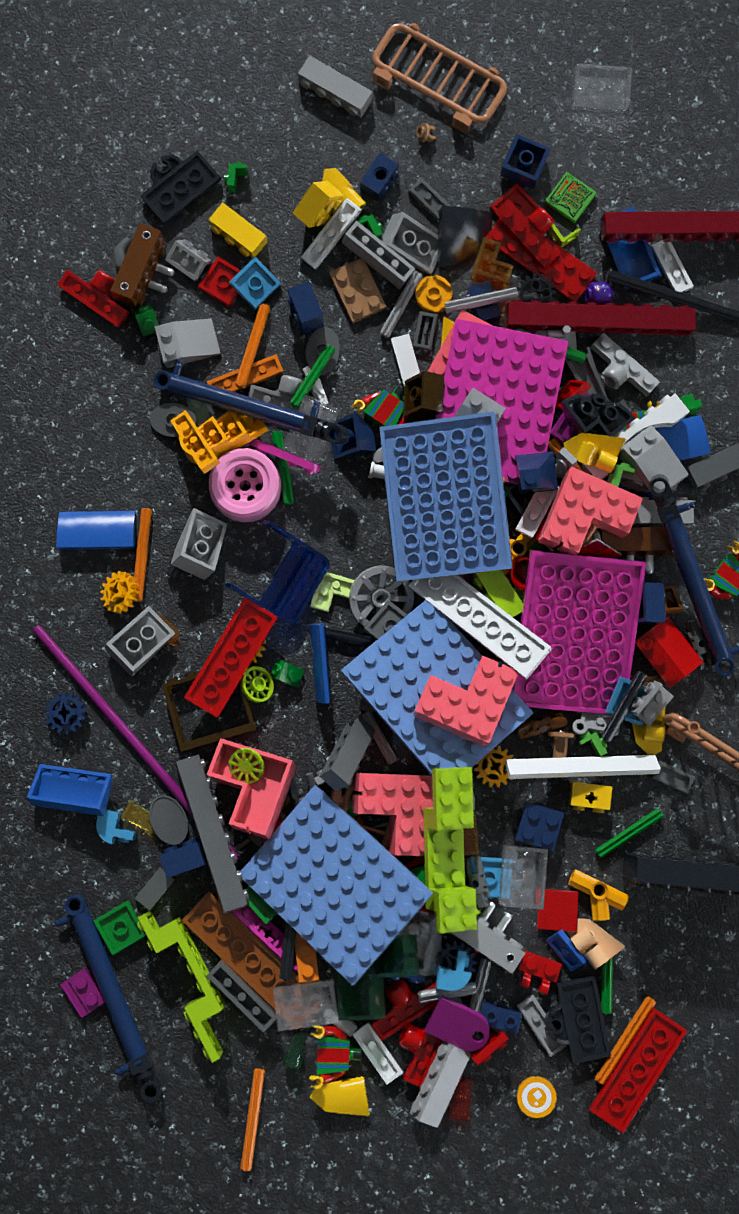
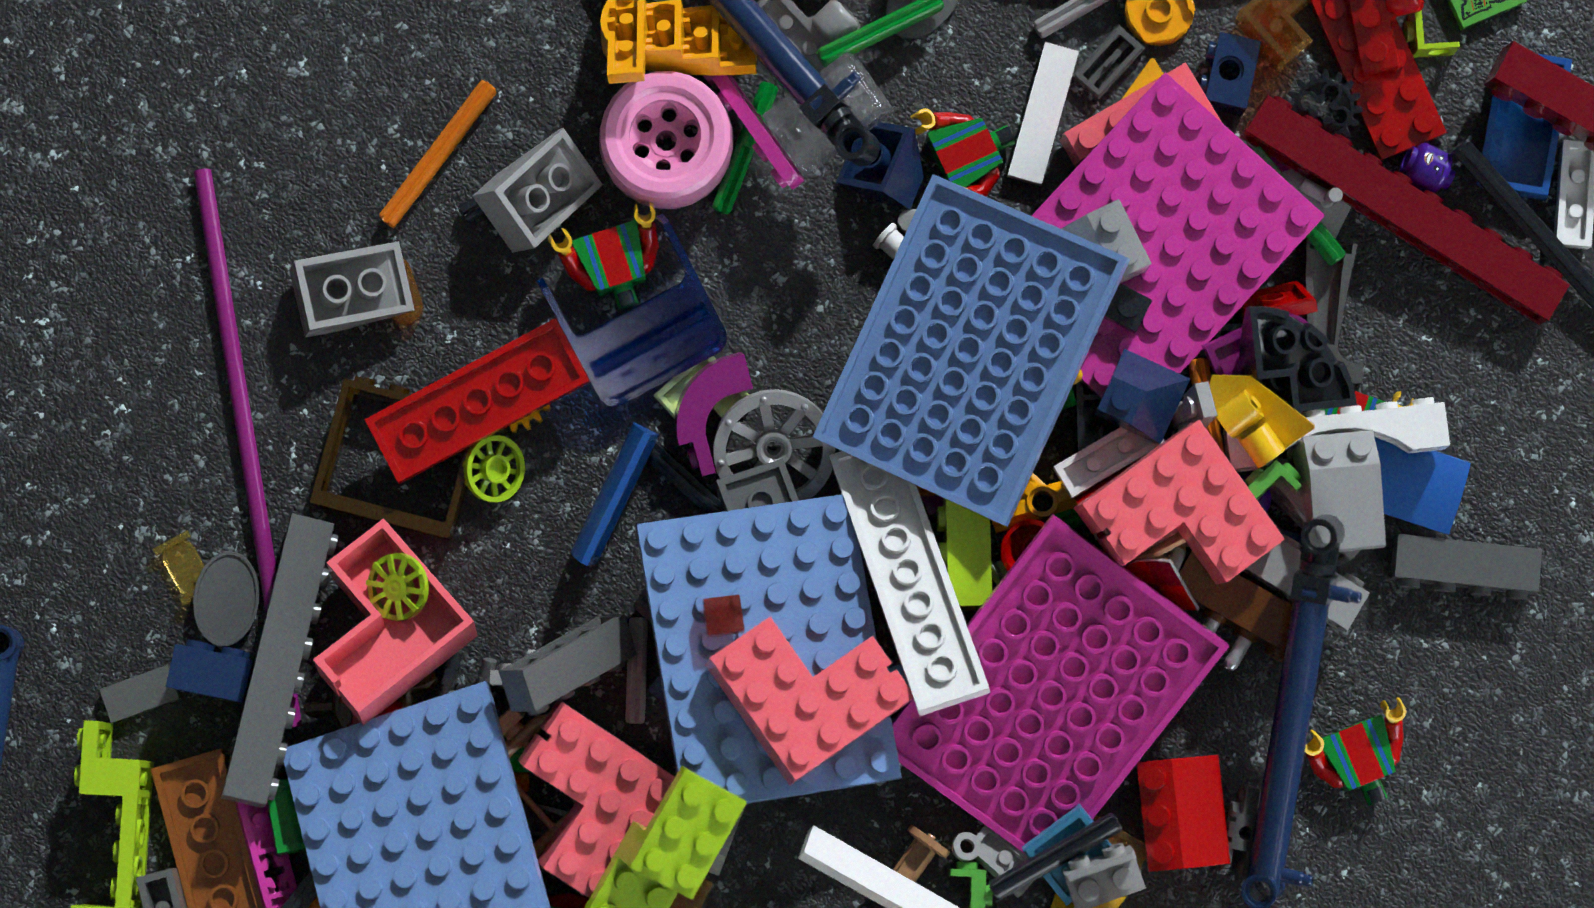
camera: 30 degrees right, 0 degrees up
(65, 720) = (163, 345): dark blue gear -> none
(70, 789) = (102, 458): blue slope -> none
(96, 530) = (390, 72): blue slope -> none
(108, 828) = (124, 554): dark azure brick -> none
(119, 592) = (366, 192): light orange gear -> none
(119, 927) = (48, 720): green plate -> none
(252, 554) = (612, 257): none -> torso
(287, 673) = (552, 480): green bracket -> none
(317, 390) = (877, 53): white piece -> none
(332, 596) = (702, 392): none -> magenta arch
(407, 688) = (723, 616): none -> clear red plate
(423, 396) = (1037, 166): dark brown brick -> none
(481, 300) = (1226, 66): light grey axle -> none
(483, 773) = (774, 827): light orange gear -> none
(506, 436) = (1127, 308): none -> black plate
(541, 725) = (908, 806): reddish brown hinge -> none
(622, 367) = (1393, 310): light grey plate -> none
(652, 604) = (1200, 719): dark blue brick -> none
(672, 601) = (1235, 732): reddish brown slope -> none
(692, 404) = (1464, 435): green bracket -> none

